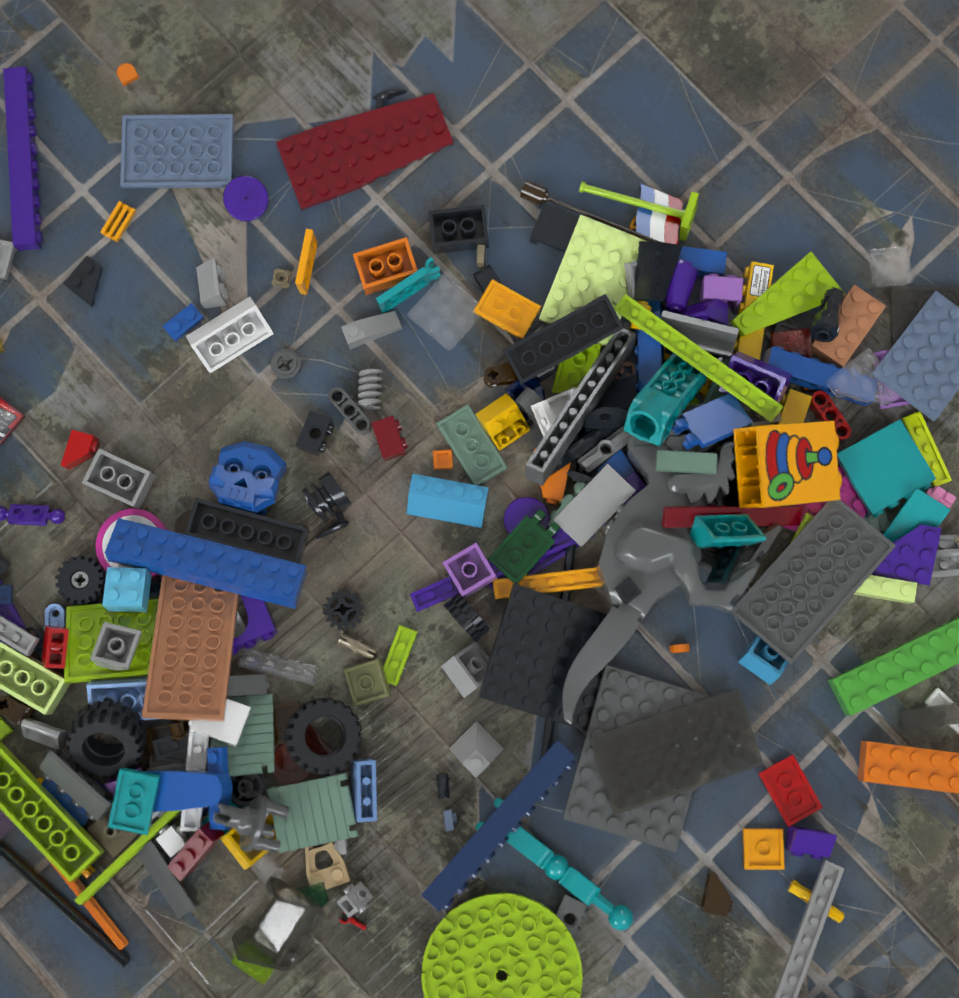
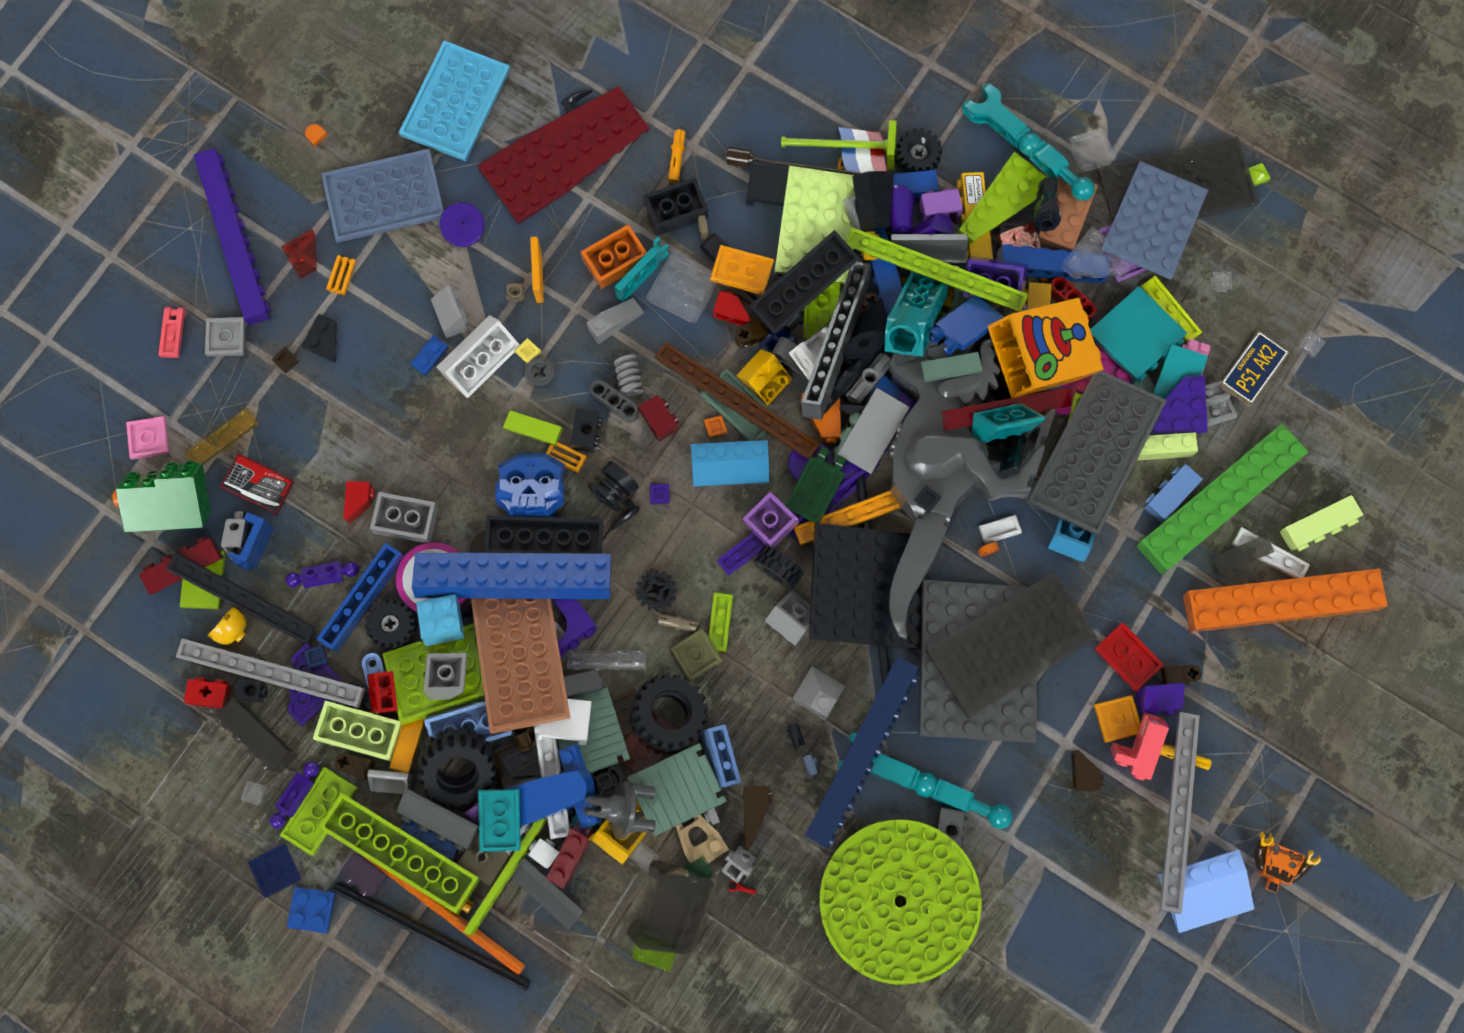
camera: 20 degrees left, 5 degrees down
(44, 294) = (285, 360): none -> dark brown tile
(58, 548) = (360, 598): none -> blue brick
(67, 704) = (407, 746): none -> light orange slope
(85, 191) = (302, 253): none -> clear red wing
(265, 418) = (533, 428): none -> lime tile
(269, 71) = (454, 101): none -> medium azure plate
(279, 340) = (527, 351): none -> light yellow tile
(301, 464) = (579, 463): none -> light orange tile
(371, 513) = (659, 494): none -> dark purple tile
(384, 847) = (755, 807): none -> dark brown slope
(469, 441) = (737, 401): none -> reddish brown plate
(473, 177) = (676, 157): none -> light orange axle
(486, 345) = (730, 309): none -> red slope
(696, 630) = (1000, 529): none -> white tile
(715, 218) = (920, 142): none -> black bush
(781, 890) = (1146, 747): none -> coral brick
(820, 236) = (1030, 144): none -> teal piece
(833, 822) = (1178, 674): none -> dark brown piece
(878, 637) = (1172, 493): none -> medium blue brick

